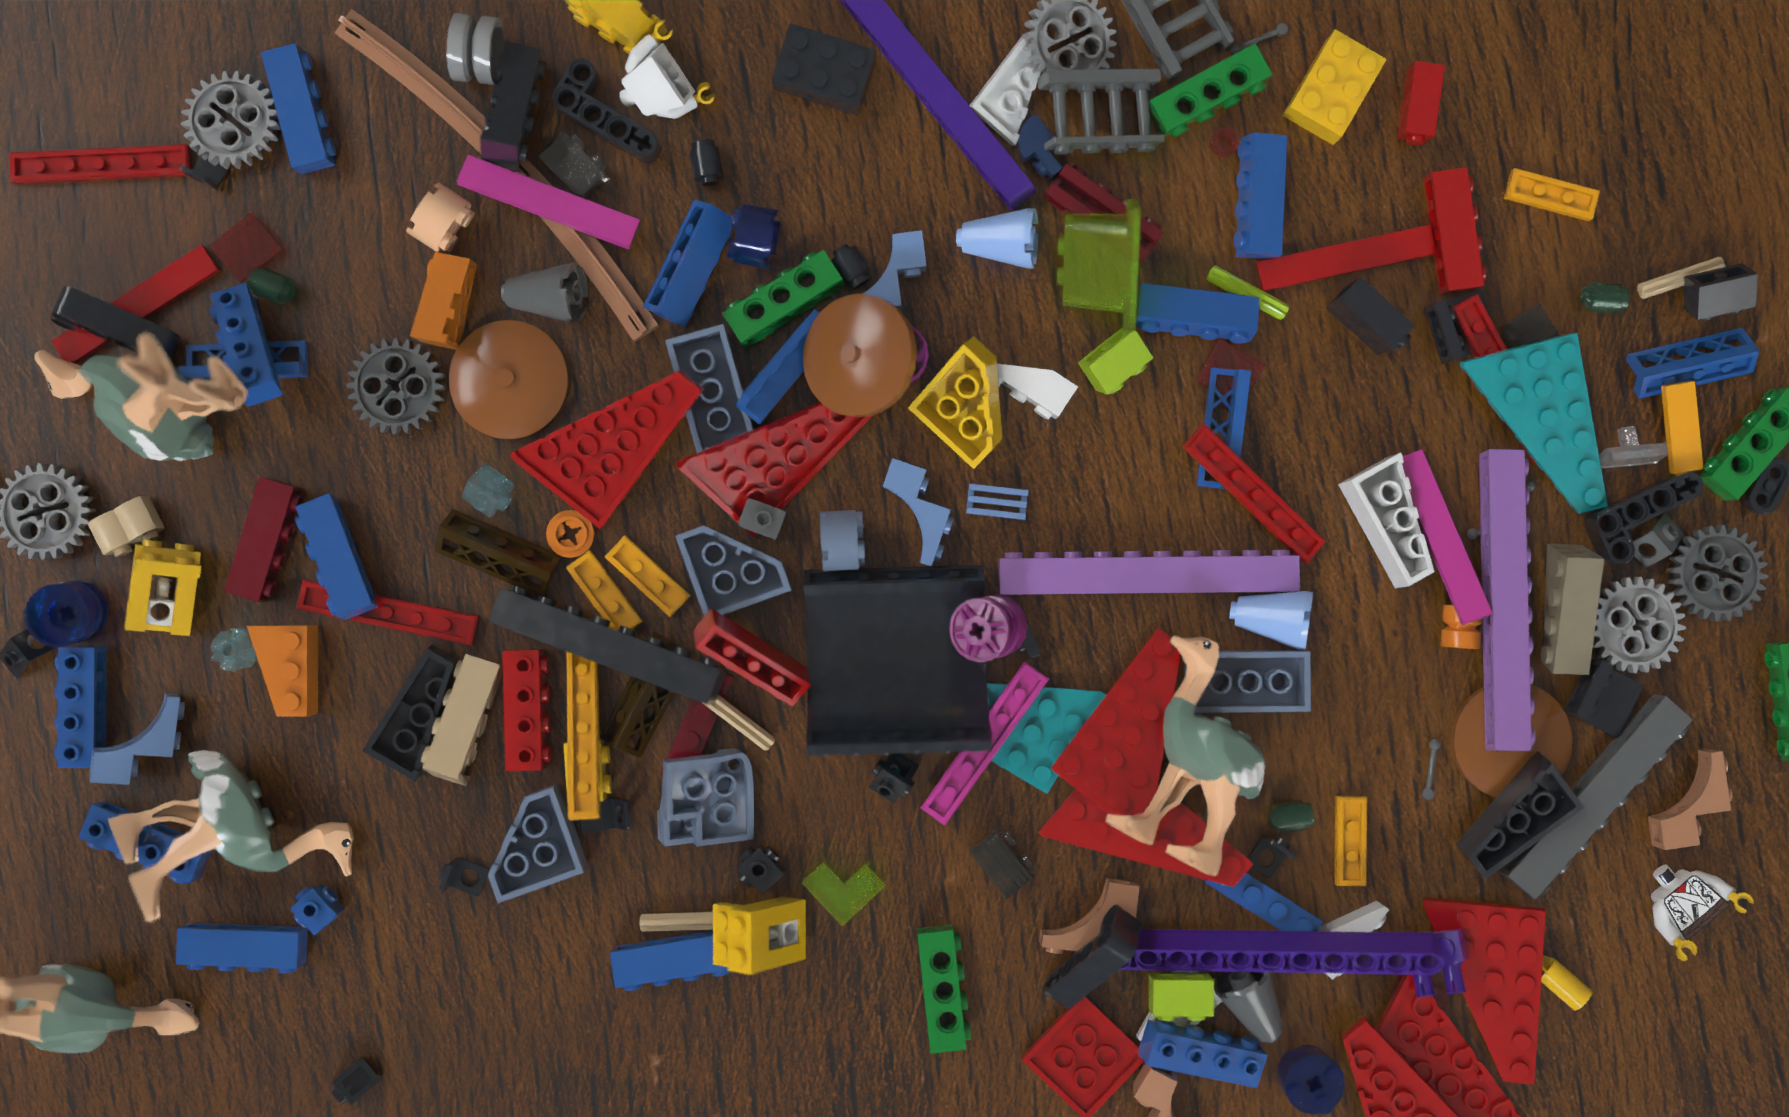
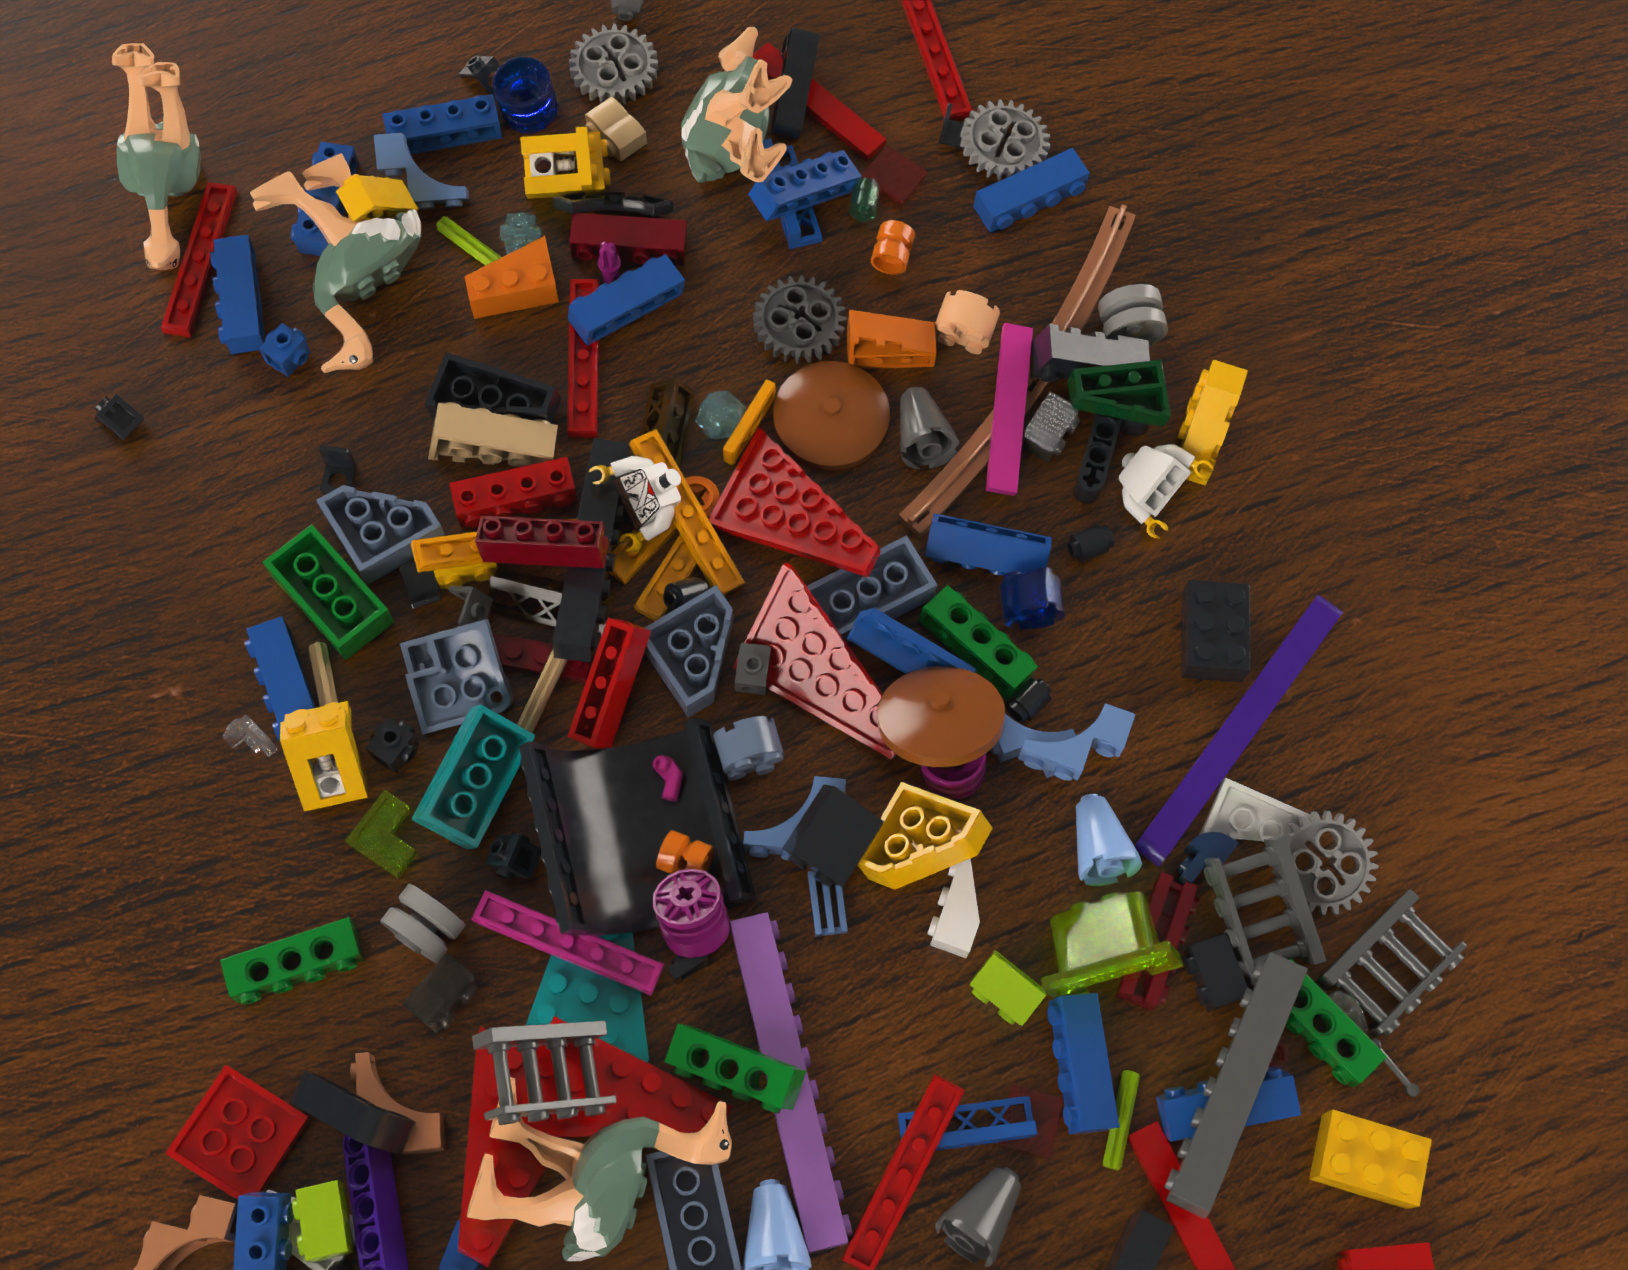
camera: 65 degrees right, 20 degrees down
(171, 792) = (374, 197): none -> yellow brick
(195, 985) = (196, 263): none -> red tile
(215, 544) = (613, 200): none -> black tile
(230, 703) = (466, 241): none -> lime axle
(292, 566) = (609, 262): none -> magenta axle
(332, 269) = (893, 247): none -> orange wheel
(502, 463) = (749, 422): none -> light orange tile
(562, 83) = (1122, 391): none -> dark green wedge
(563, 583) = (646, 493): none -> white torso
(587, 547) = (692, 520): none -> light orange tile
(592, 905) = (328, 592): none -> green brick
(600, 694) = (542, 541): none -> dark red brick
(643, 769) = (476, 604): none -> dark grey bracket
(671, 566) = (683, 591): none -> black brick
(723, 993) = (253, 736): none -> clear bracket
(812, 800) = (472, 777): none -> teal brick
(846, 617) = (671, 774): none -> dark pink arm
(908, 203) = (1069, 756): none -> medium blue arch
(930, 622) = (680, 854): none -> orange wheel
(940, 869) = (419, 928): none -> light grey wheel
(947, 484) = (832, 836): none -> black brick
(1085, 798) = (527, 1040): none -> dark grey fence
(1144, 171) = (1215, 973): none -> black brick
(1152, 580) = (783, 1078): none -> green brick
(1202, 61) = (1350, 1007): none -> clear arm
(1252, 183) = (1236, 1085): none -> dark grey brick
(1303, 435) = (981, 1216): none -> dark grey cone

